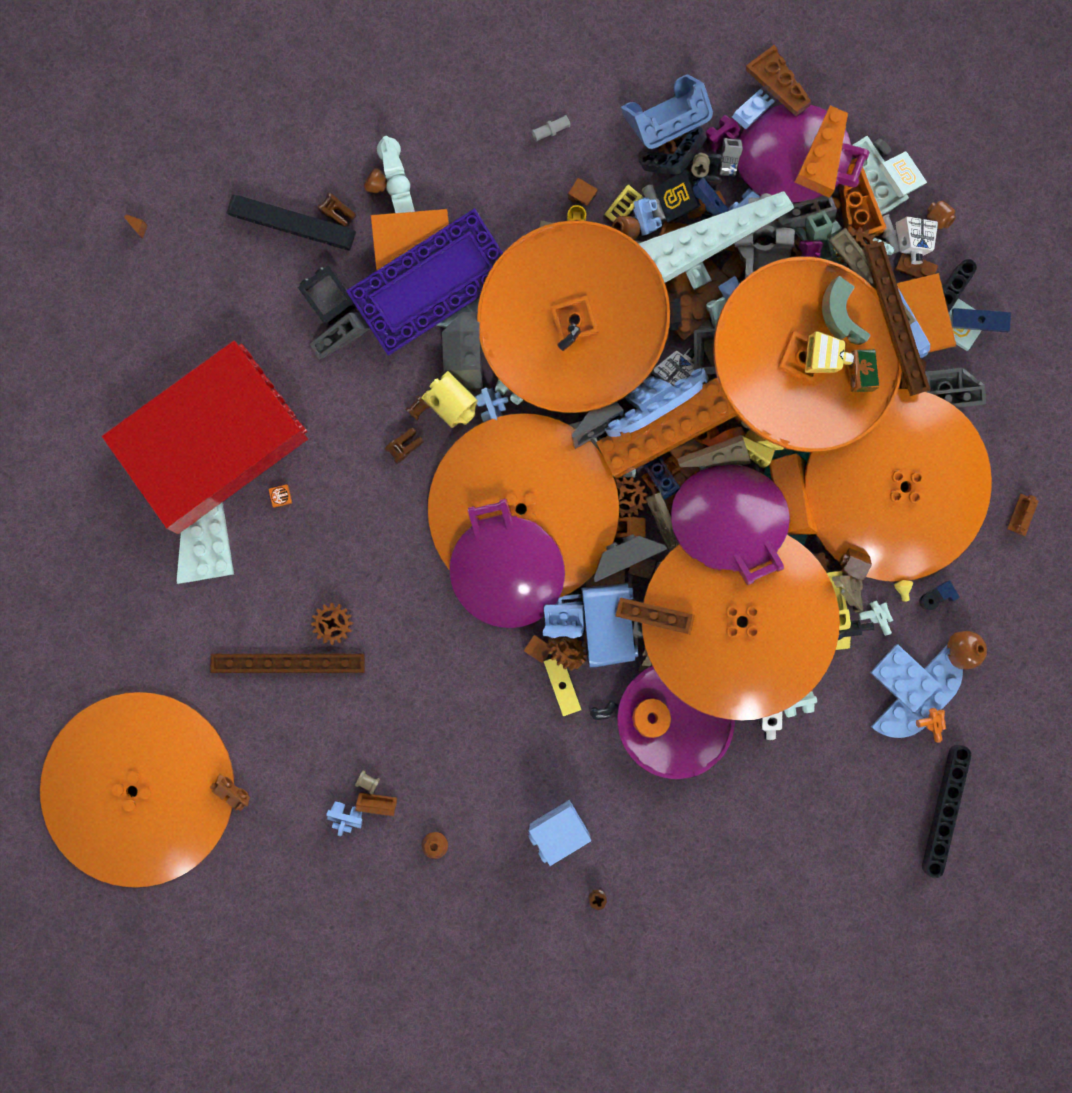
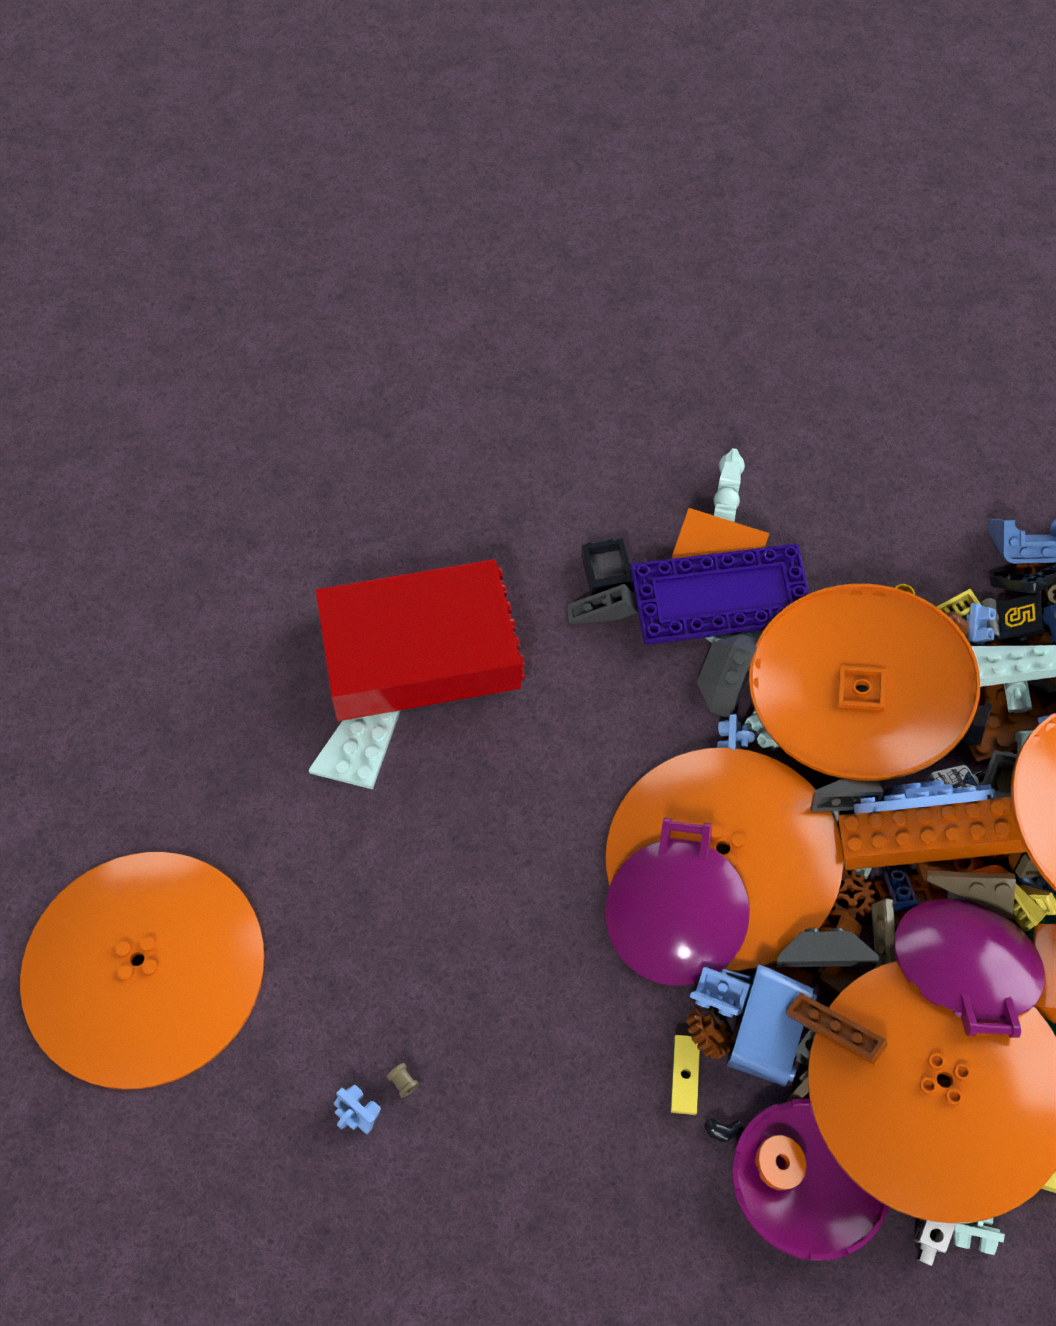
camera: 25 degrees right, 25 degrees down
(137, 224) = (453, 436): dark orange slope -> none
(224, 786) = (240, 1007): dark orange hinge -> none
(280, 496) = (463, 732): orange tile -> none
(287, 663) = (382, 906): reddish brown tile -> none
(291, 221) = (605, 491): black beam -> none
(327, 635) = (455, 874): dark orange gear -> none
(332, 204) = (652, 492): reddish brown piece -> none
(375, 181) = (705, 488): dark orange cone -> none
(376, 804) = (400, 1111): dark orange tile -> none
(403, 451) = (615, 738): reddish brown piece -> none
(417, 408) = (651, 707): reddish brown bush -> none
(429, 843) = (450, 1203): dark orange cone -> none
(451, 400) = (692, 711): light yellow cylinder -> none
(537, 649) = (673, 1017): dark orange panel -> none
(550, 128) = (906, 512): light grey pin -> none
(558, 833) = (607, 1247): light blue container -> none
(570, 338) = (857, 694): black arm -> none
(582, 192) = (917, 576): dark orange panel -> none

